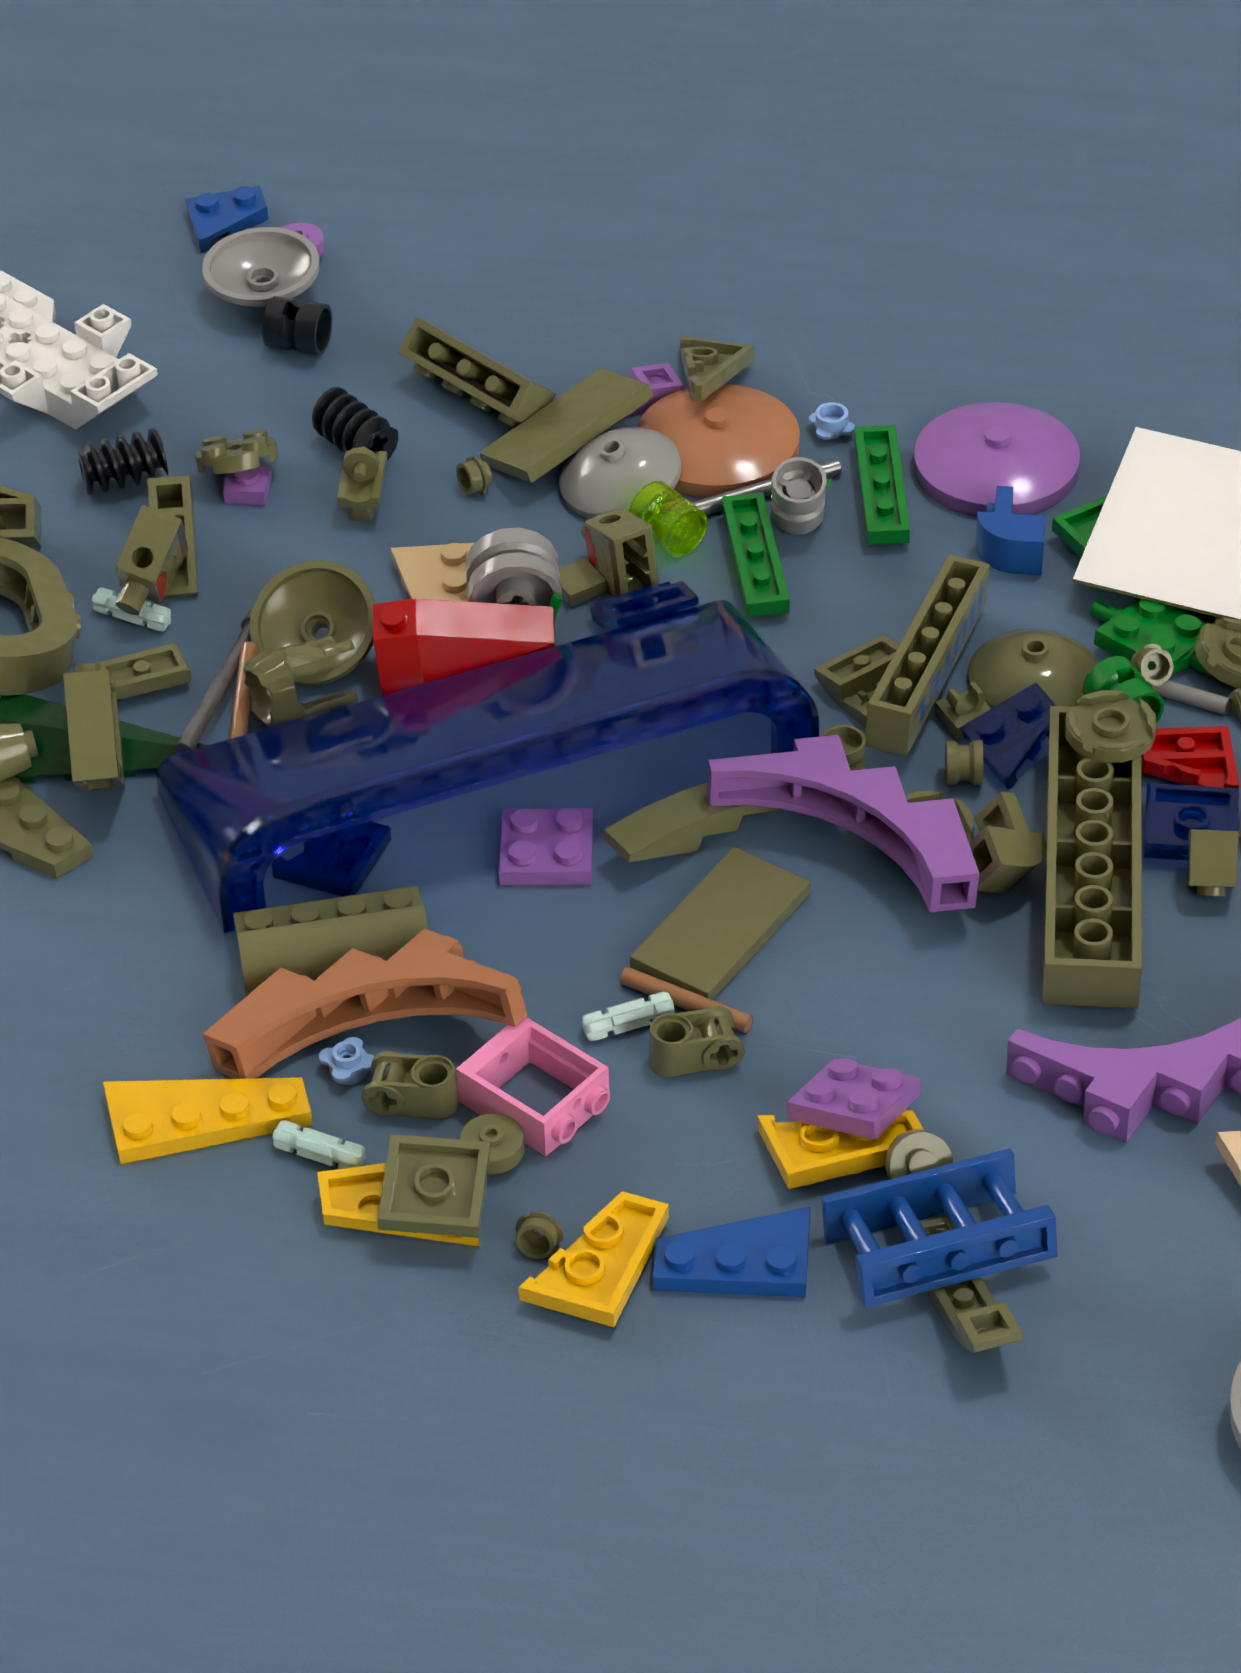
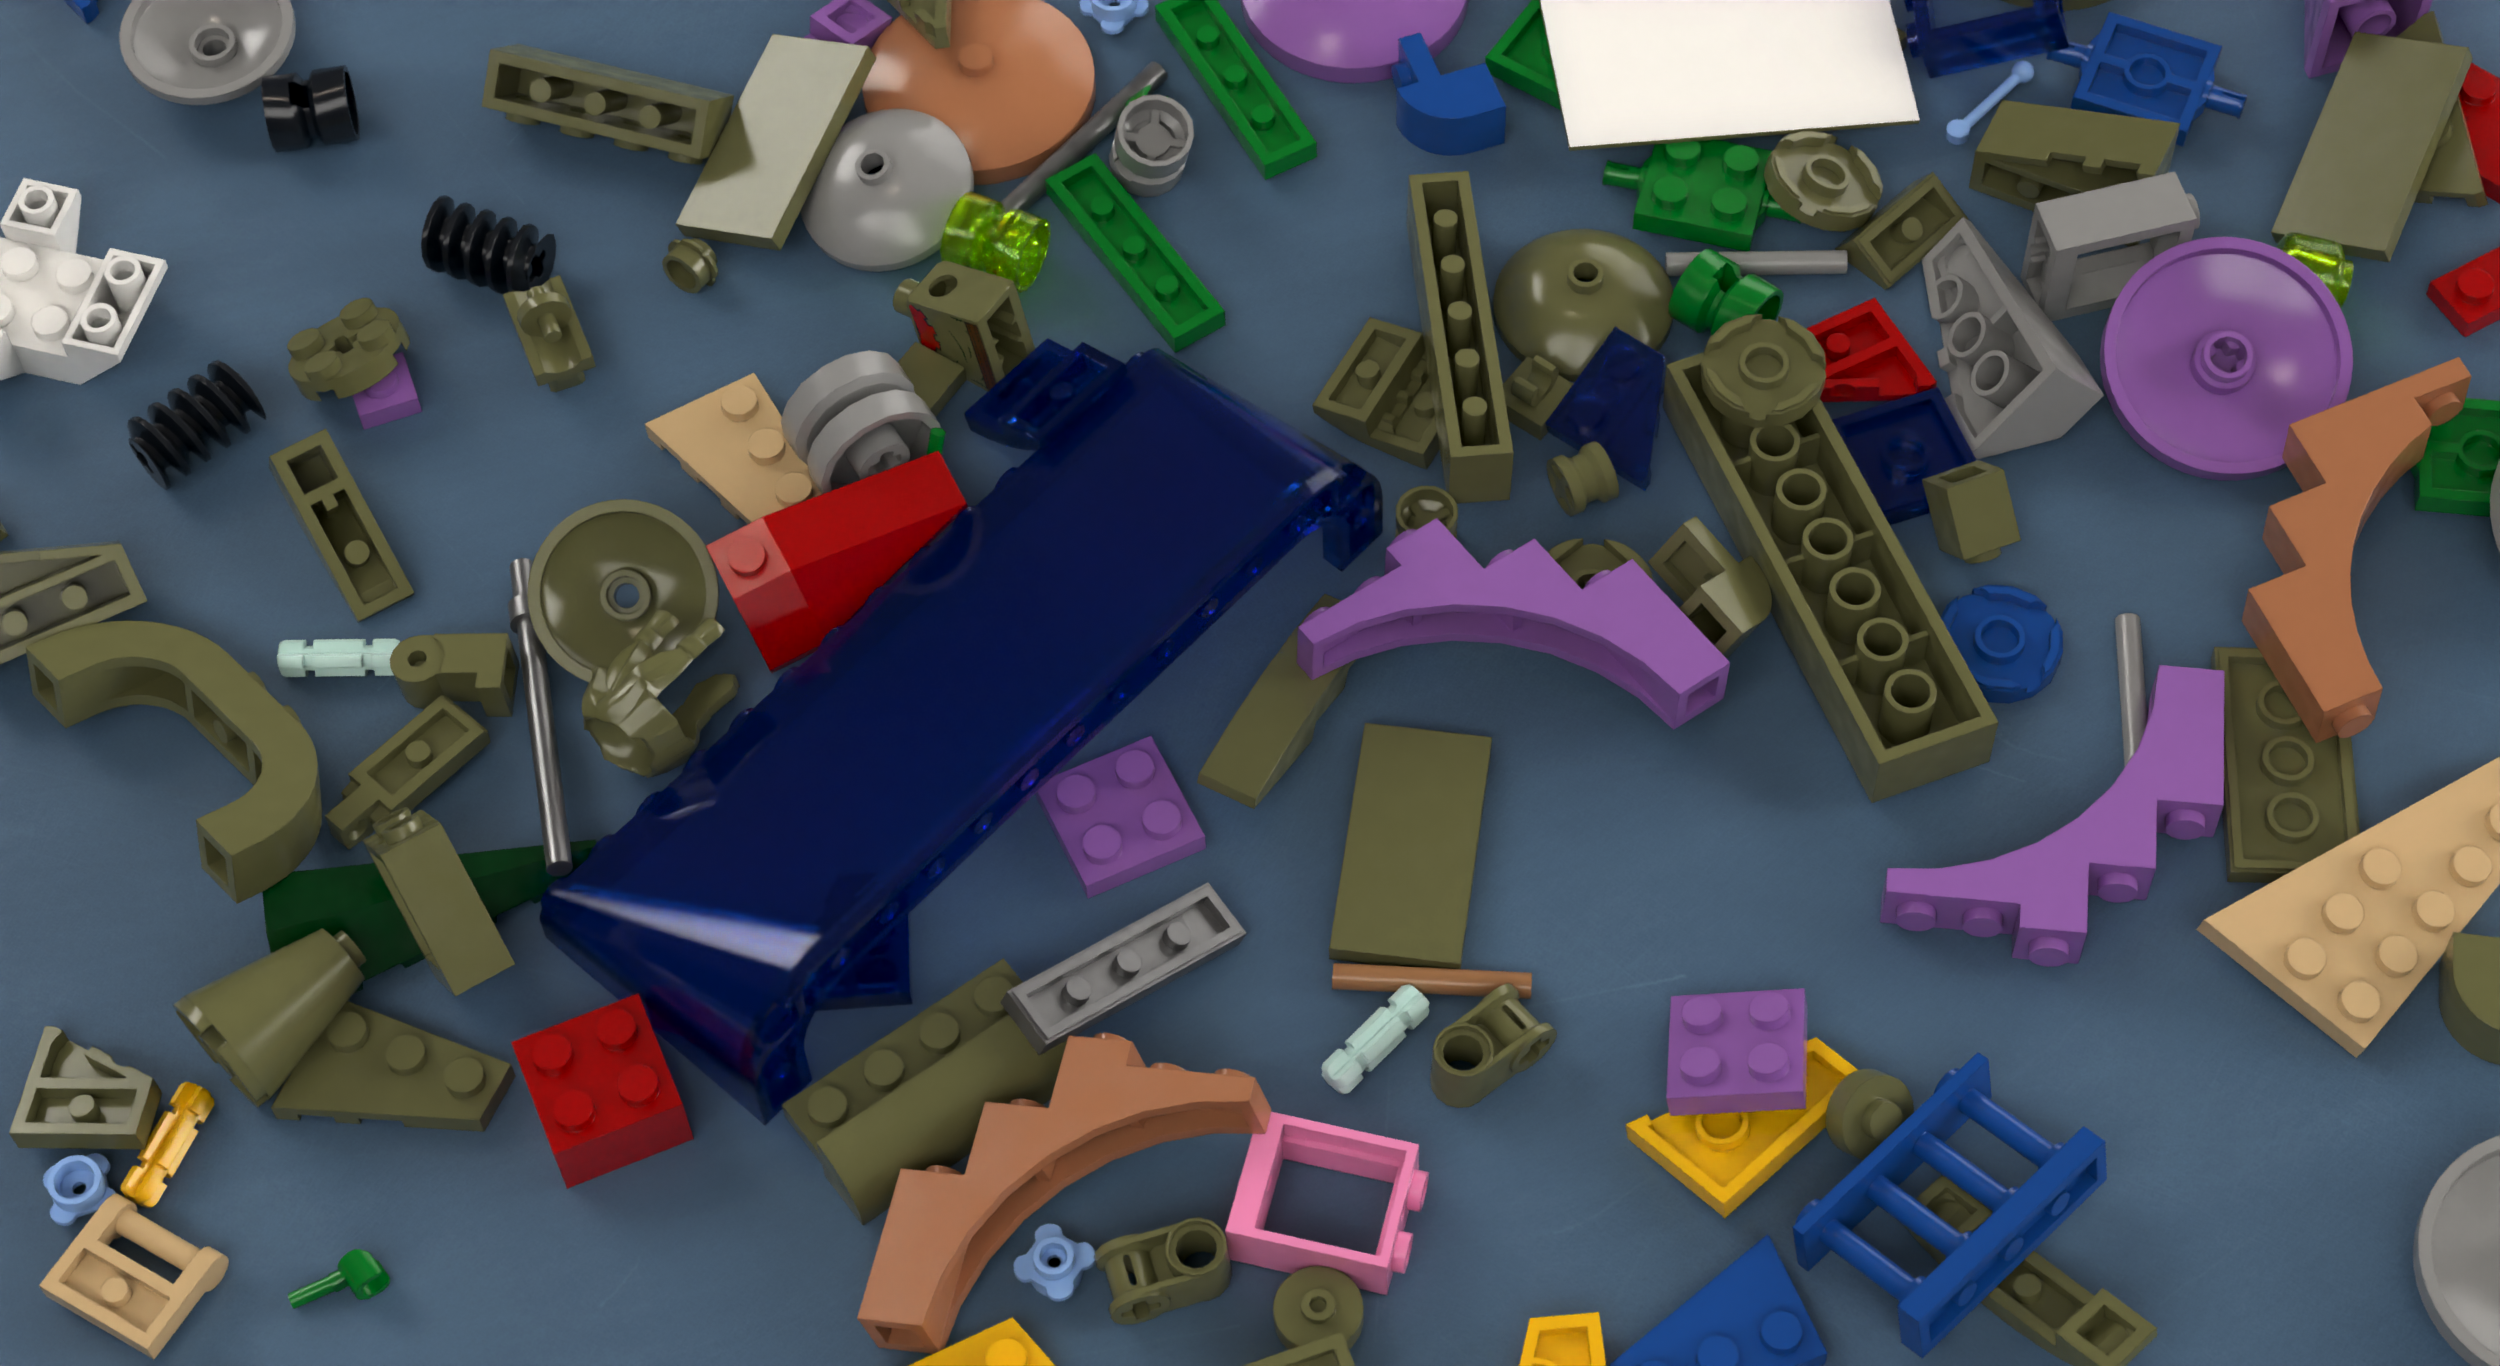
camera: 25 degrees left, 15 degrees up
(133, 872) = (602, 1090): none -> red brick
(150, 559) = (344, 561): olive torso -> none
(196, 635) = (458, 666): none -> olive leg
(242, 697) = (583, 745): medium nougat bar -> none
(489, 914) = (1122, 968): none -> flat silver tile
(1162, 662) = (1742, 241): olive plate -> none
(1189, 947) = (2005, 641): none -> blue tile

